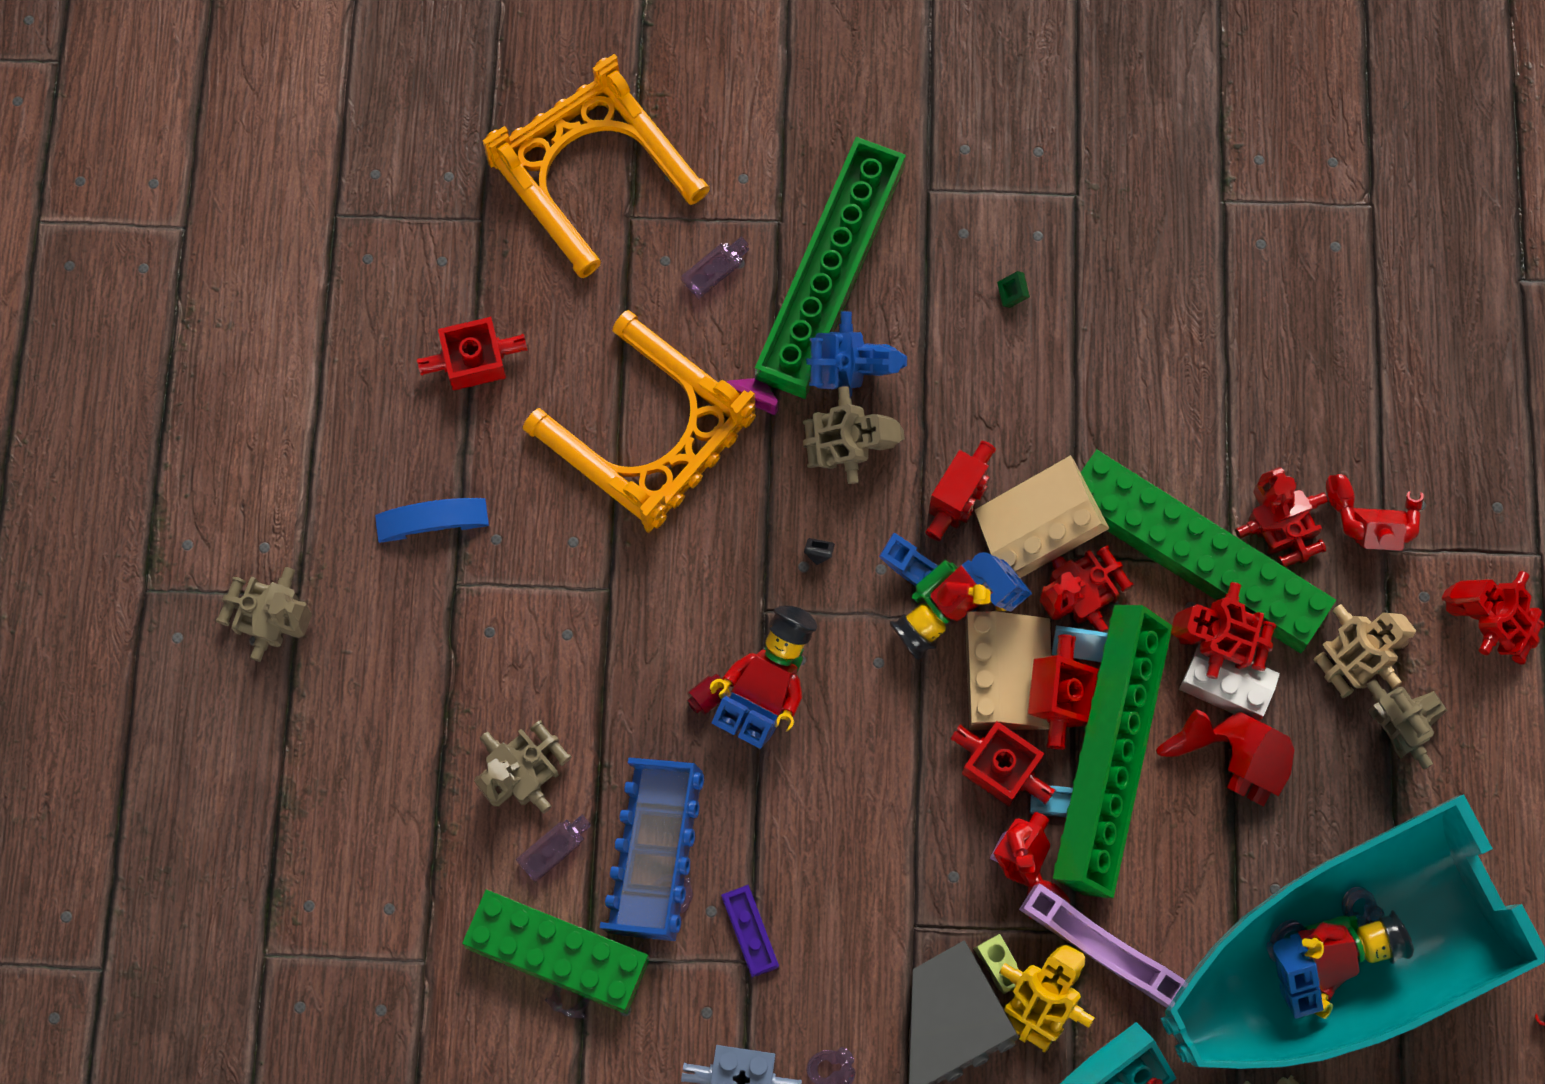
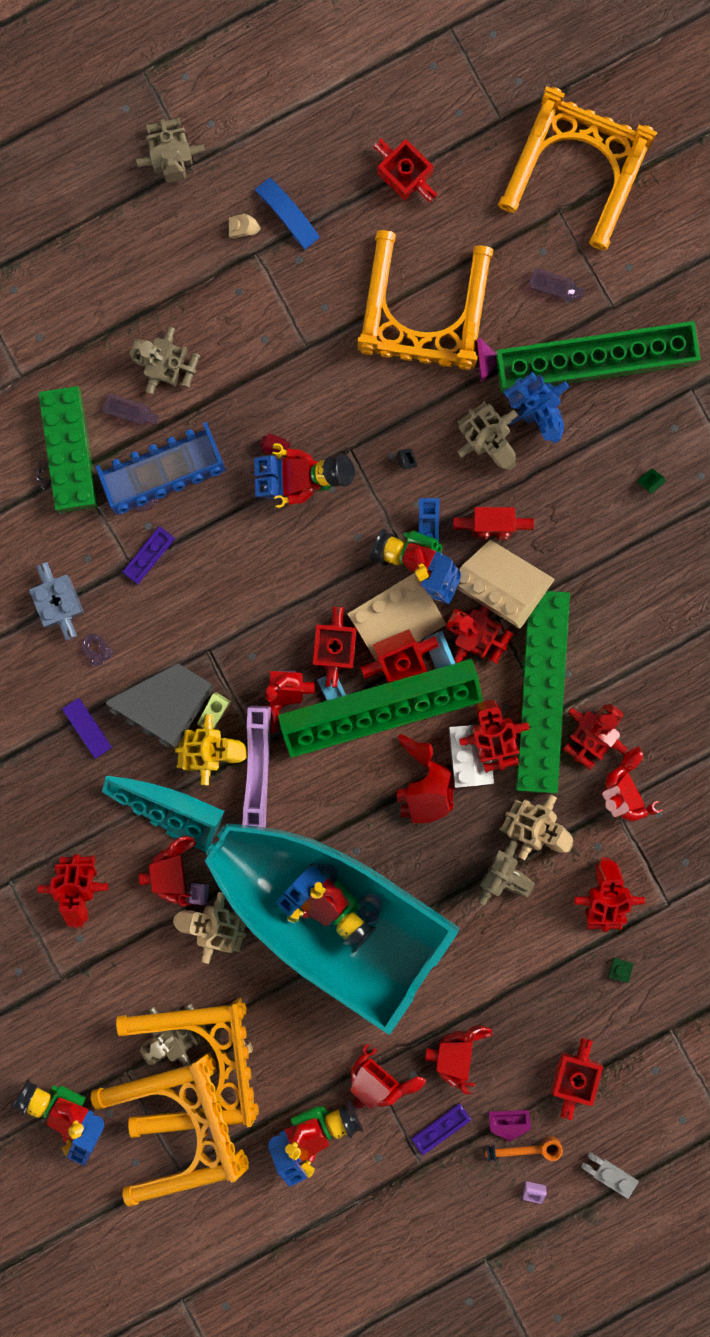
camera: 60 degrees right, 15 degrees up
(414, 579) = (242, 226): none -> tan plate

